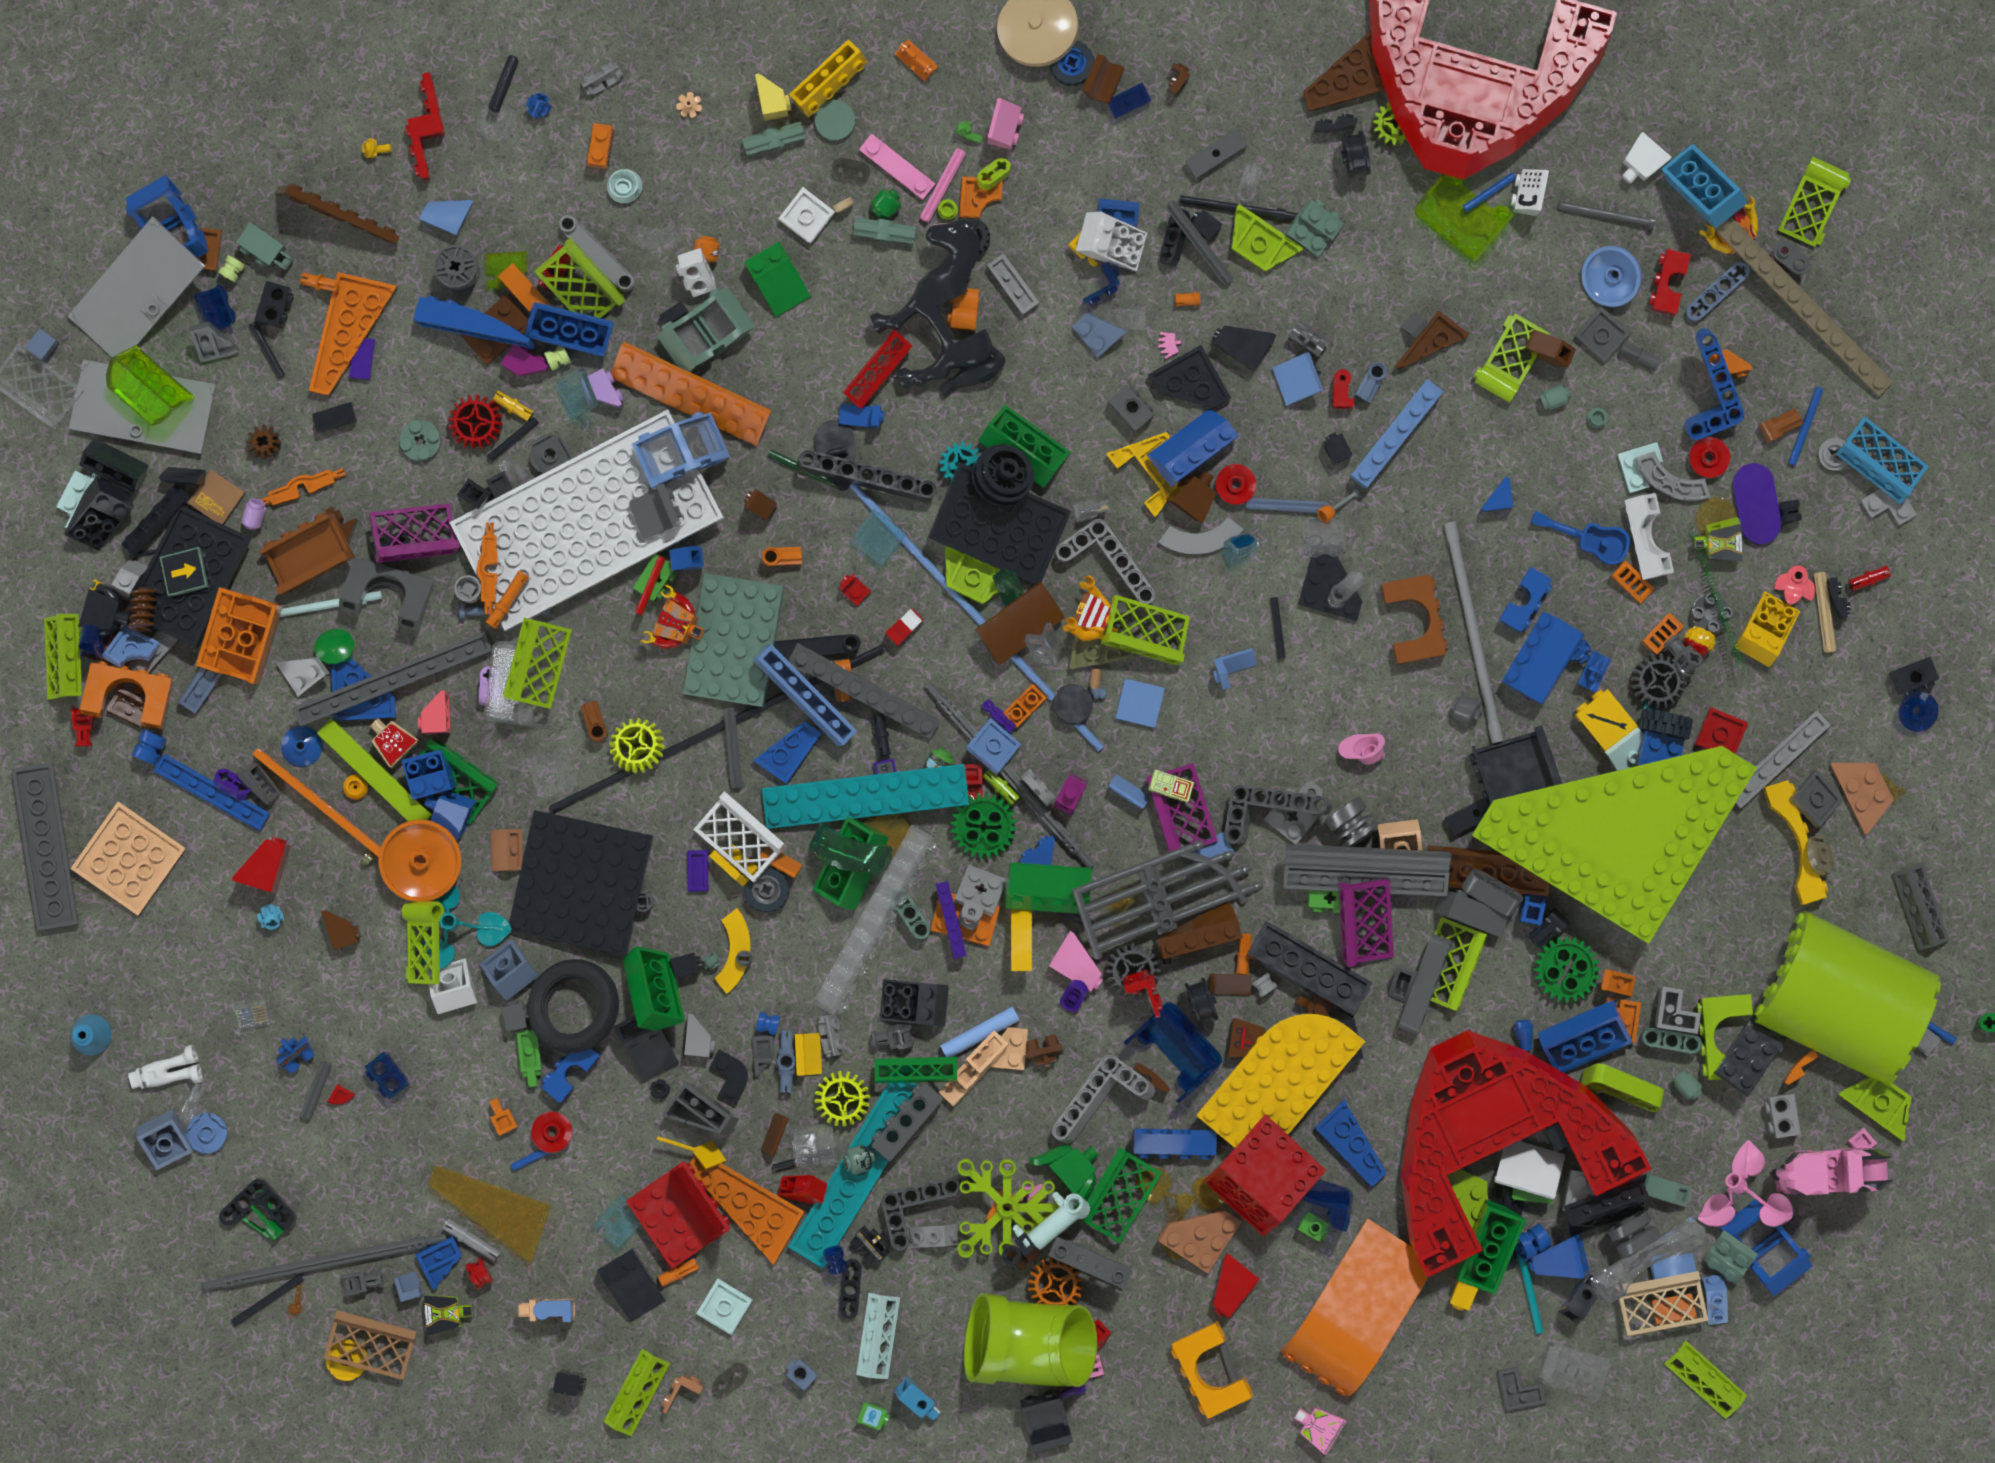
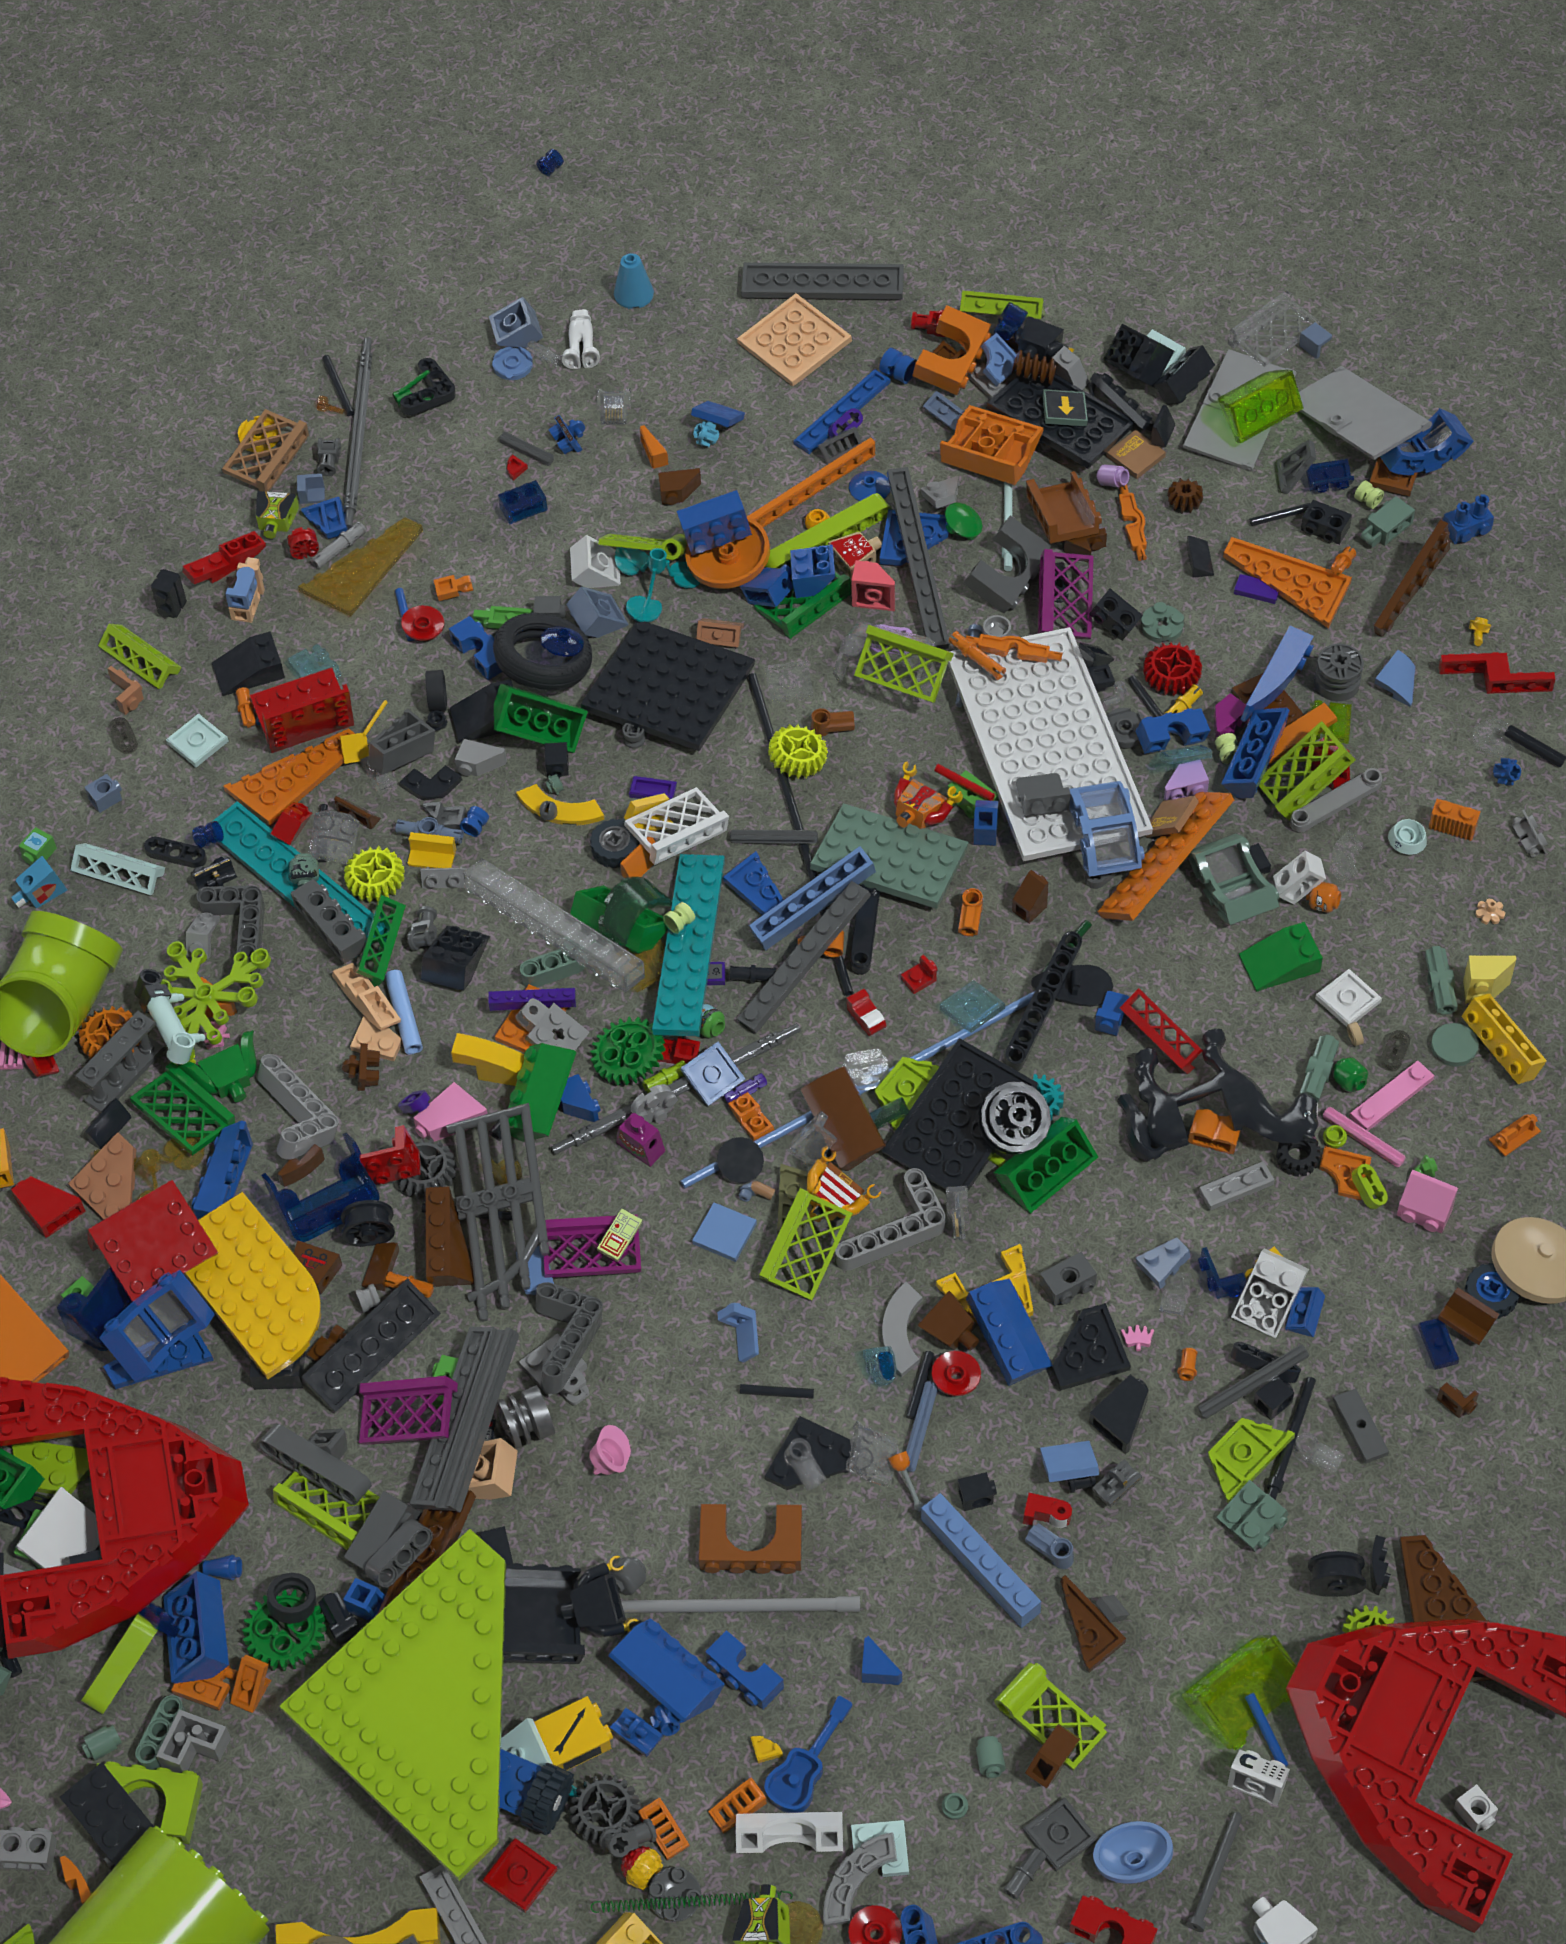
camera: 105 degrees right, 30 degrees down
(244, 910) = (717, 414): none -> blue tile
(249, 172) = (1469, 520): none -> blue brick
(265, 865) = (755, 431): red slope -> none
(299, 963) = (654, 450): none -> orange slope
(405, 874) = (714, 522): none -> blue brick
(422, 481) = (1118, 611): none -> black brick
(510, 1344) = (225, 560): none -> red slope
(558, 425) = (1188, 724): none -> blue arch
(572, 989) = (562, 641): none -> clear blue dish
(633, 1095) = (436, 690): none -> black tyre
(647, 395) = (1172, 815): none -> medium nougat tile
(846, 804) = (679, 917): none -> yellowish green wheel
(966, 606) = (871, 1059): none -> clear plate
(1129, 792) = (627, 1198): medium blue slope -> none
(1143, 1257) = (108, 1124): none -> black slope
(1249, 512) = (919, 1386): none -> black bar
(1339, 1148) = (155, 1322): none -> blue window
(1499, 724) = (598, 1602): none -> black torso
(1516, 35) = (1476, 1798): none -> white brick
(1562, 964) = (292, 1614): none -> black tyre
(1582, 571) = (765, 1749): none -> yellow tile
(1588, 1064) = (160, 1619): none -> clear blue plate

